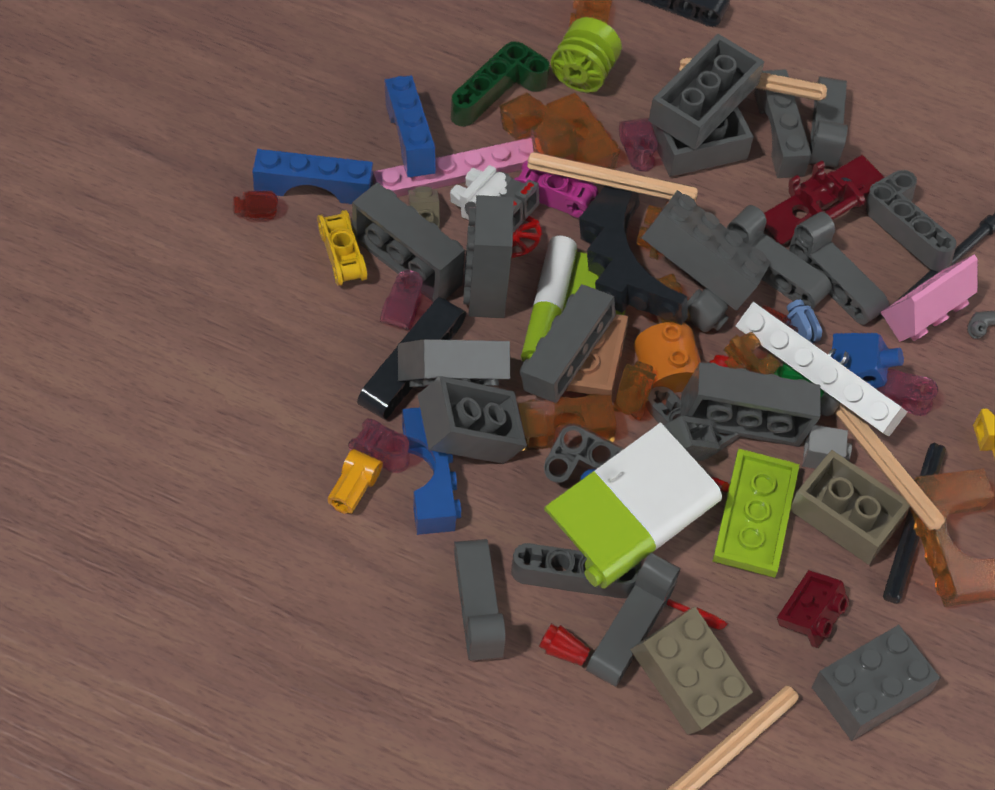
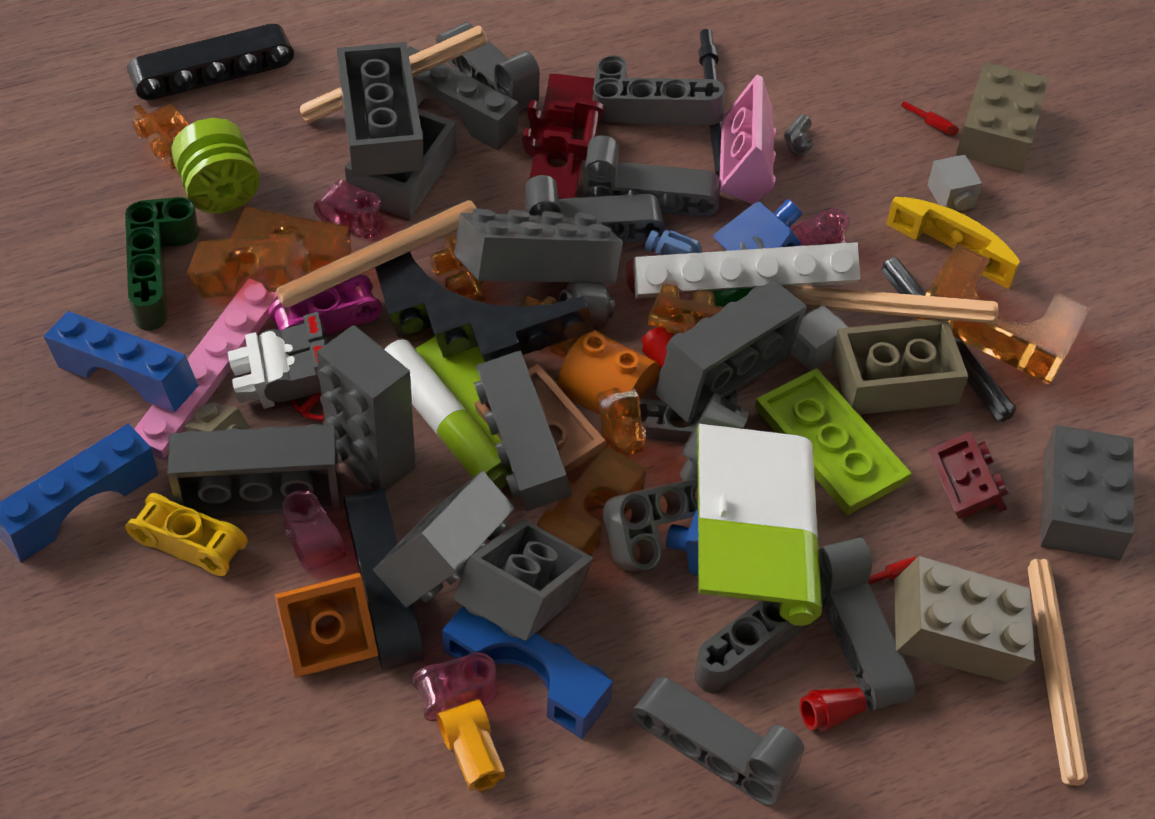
camera: 45 degrees left, 5 degrees down
(256, 205) = (42, 570): clear red arm -> none
(350, 352) = (326, 624): none -> orange brick

